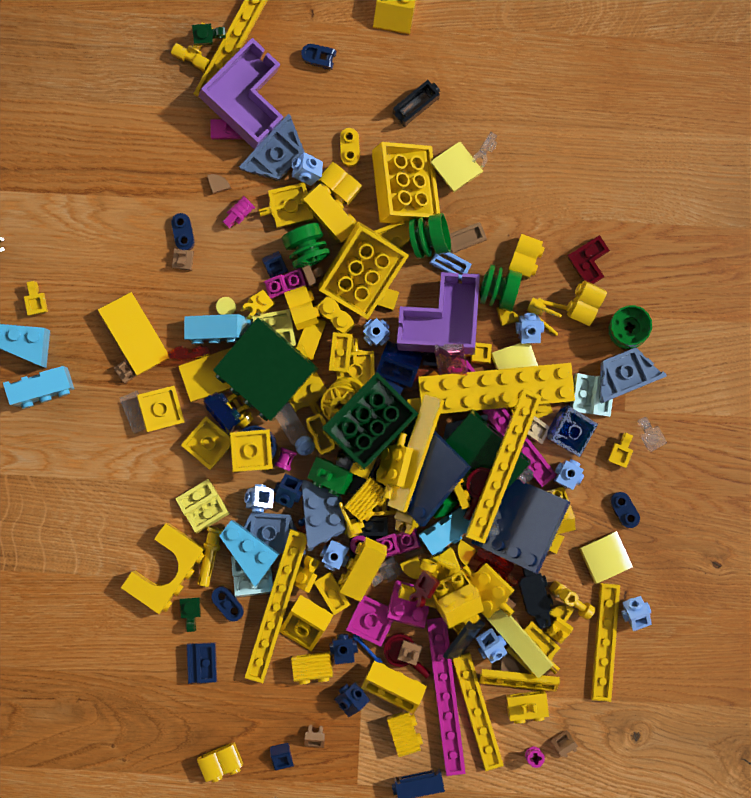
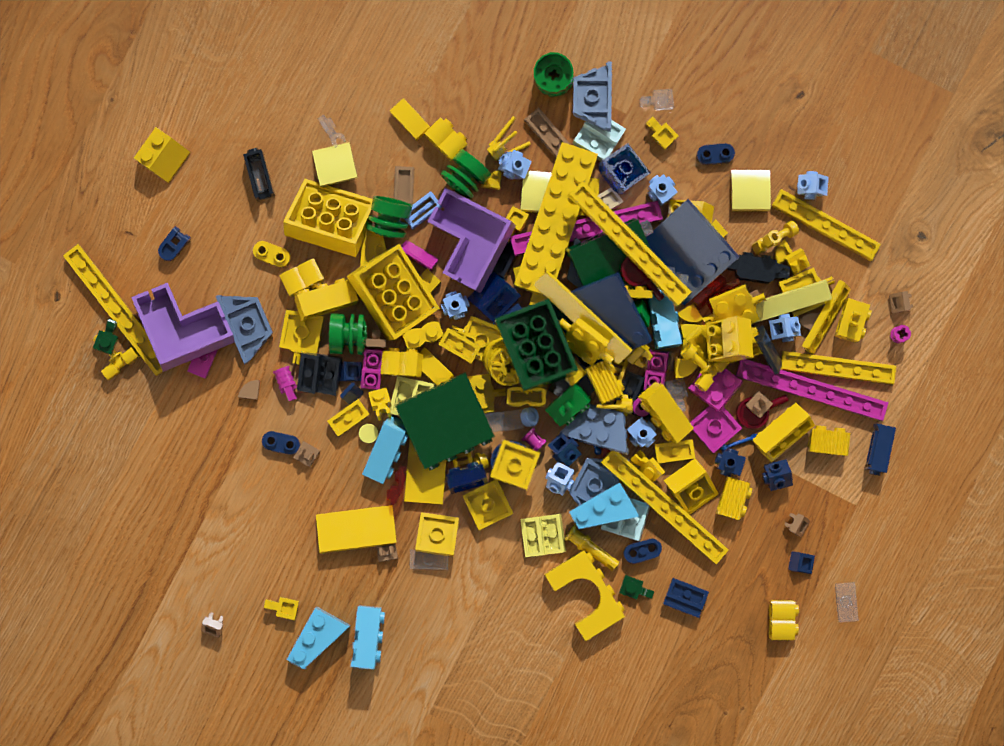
camera: 75 degrees left, 0 degrees up
(231, 282) = (348, 417): none -> yellow plate
(254, 275) = (351, 393): none -> slope
(260, 237) = (319, 373): none -> black slope
(307, 169) = (276, 301): light blue brick -> none
(408, 279) = (419, 255): none -> dark pink slope
(426, 587) = (708, 362): dark red plate -> none
(451, 359) = (512, 247): clear pink plate -> none
(529, 215) = (410, 119): none -> yellow slope
(574, 344) = (545, 131): none -> medium nougat tile
(584, 259) = (475, 88): dark red plate -> none
(586, 303) = (513, 103): yellow brick -> none

